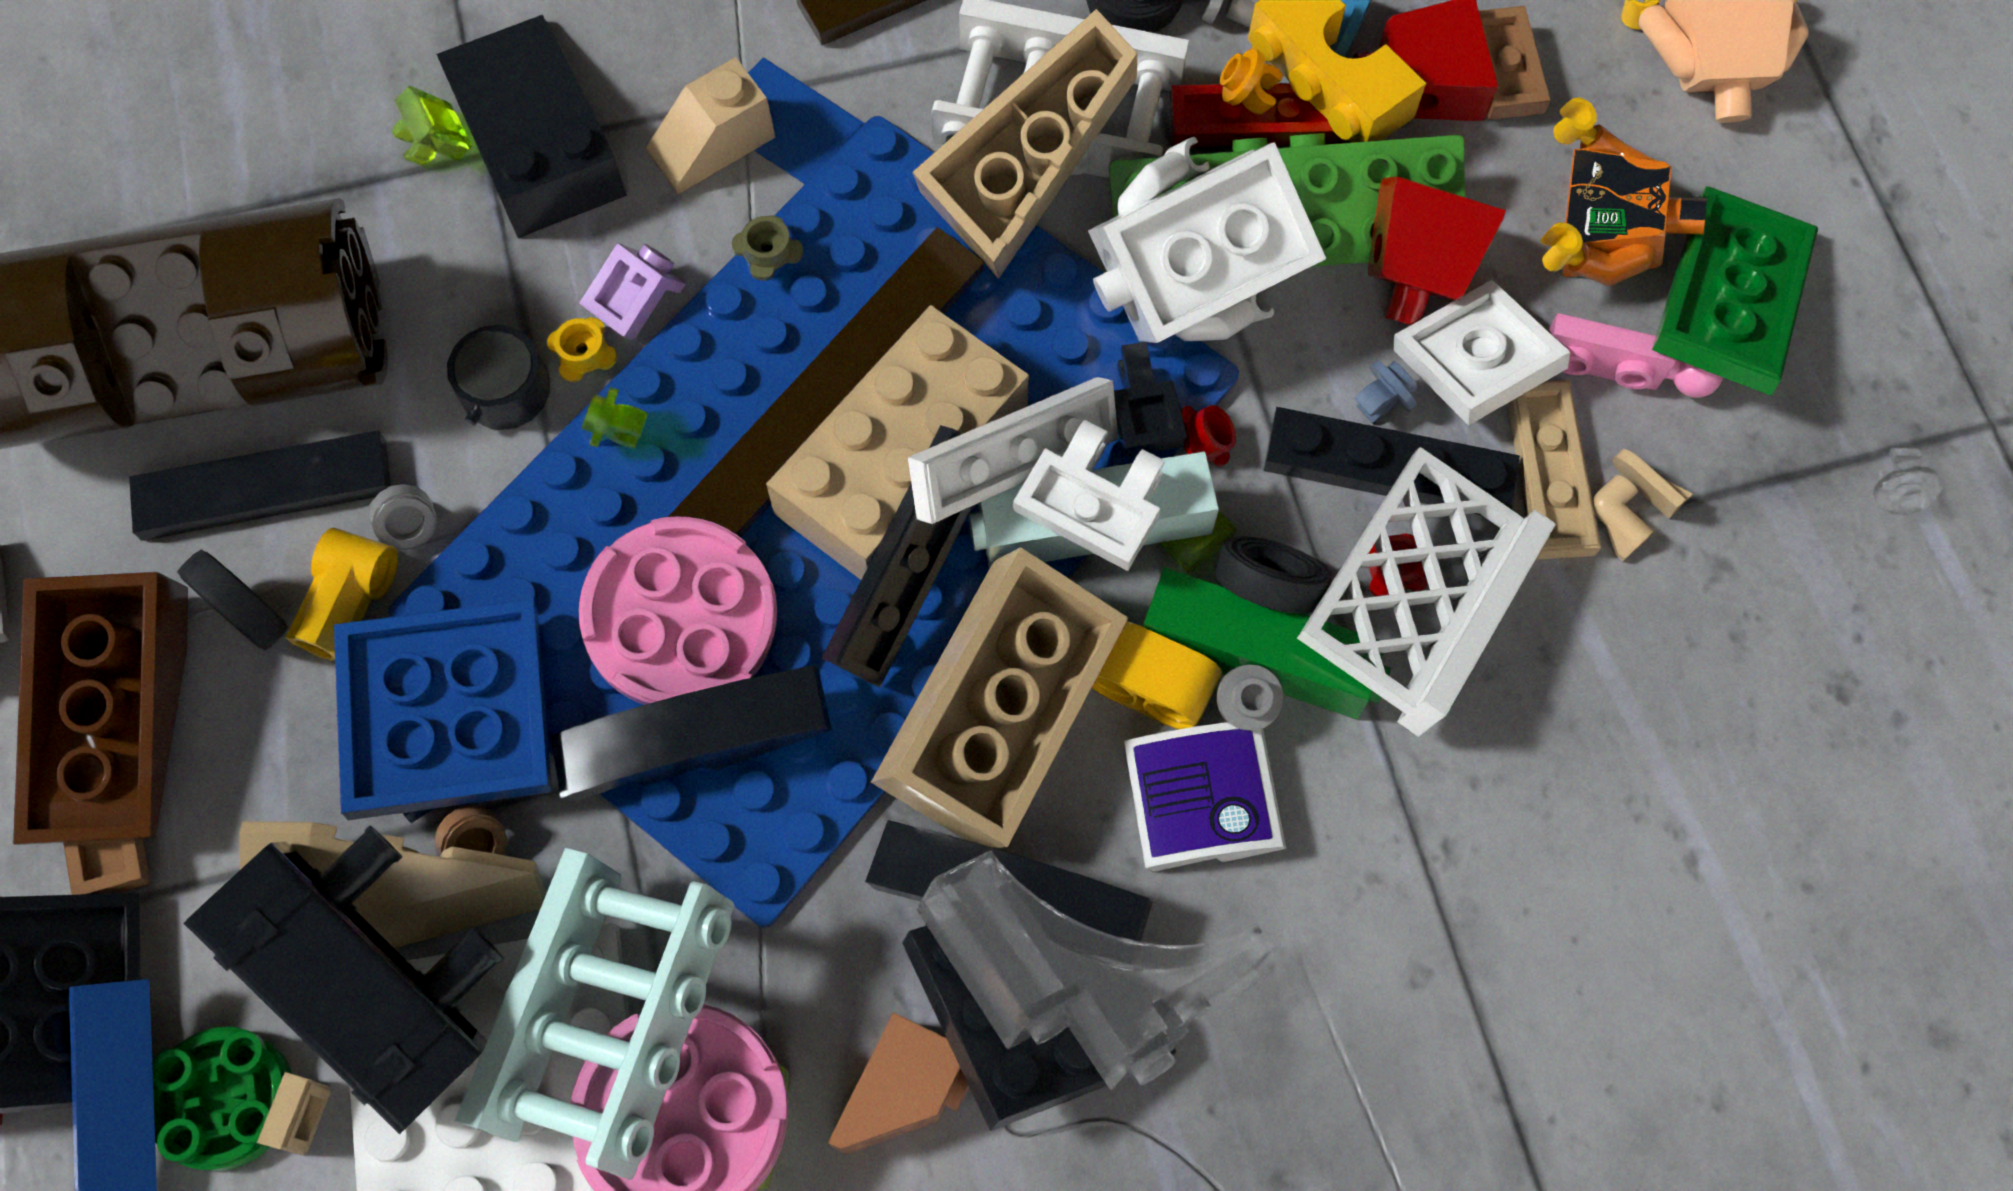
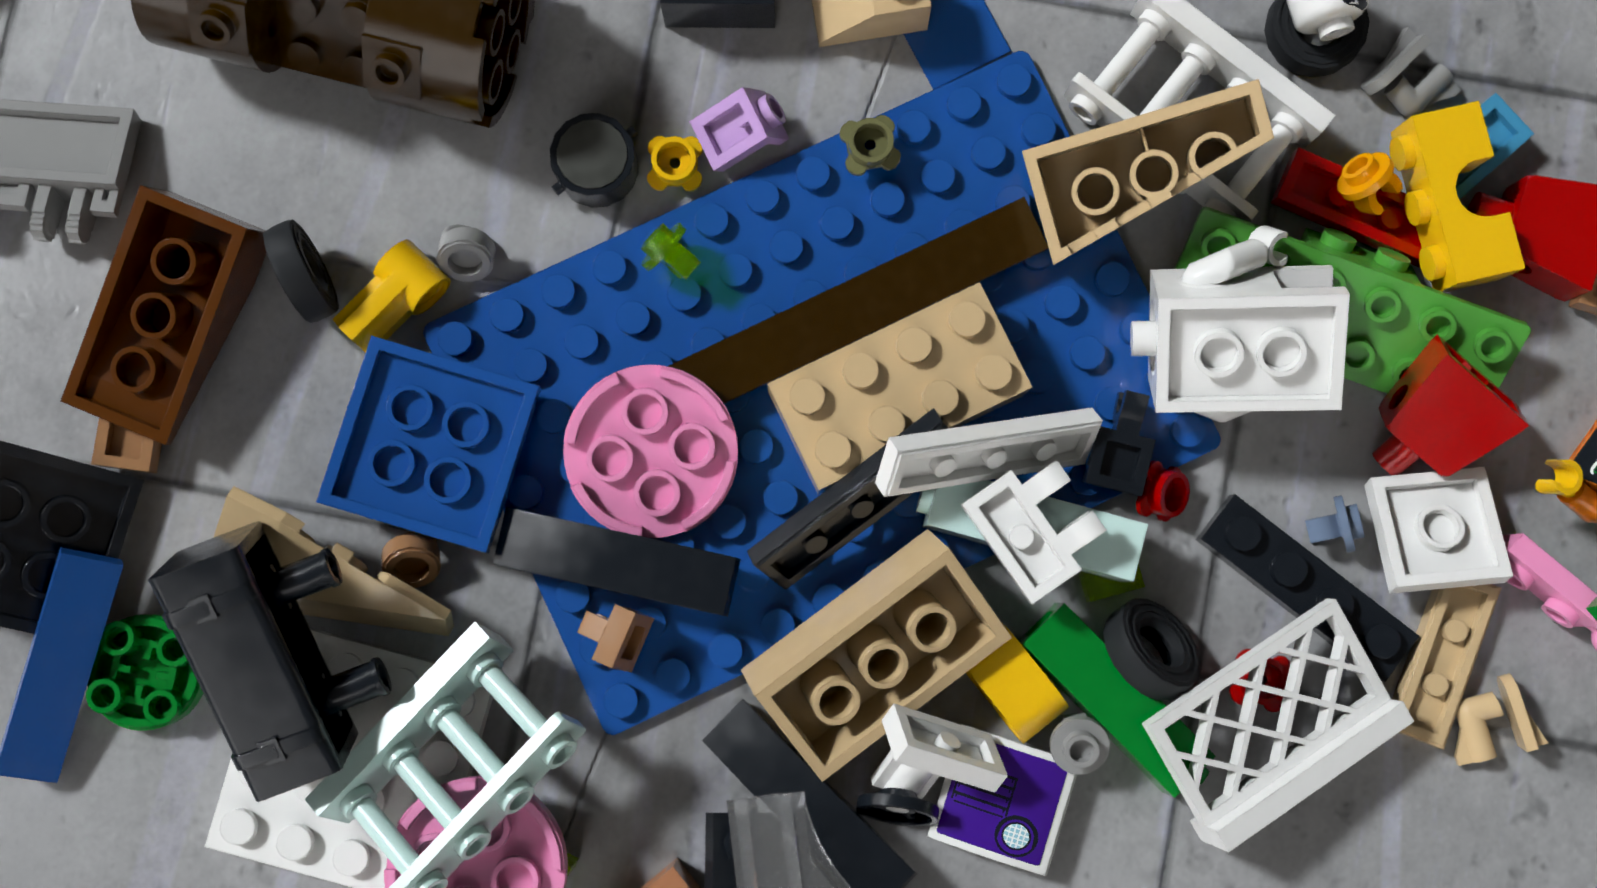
camera: 25 degrees right, 15 degrees up
(258, 485) = (364, 166): black tile -> none
(294, 1114) = (188, 722): tan tile -> none
(726, 806) = (618, 636): none -> medium nougat tile
(1097, 788) = (919, 754): none -> white piece

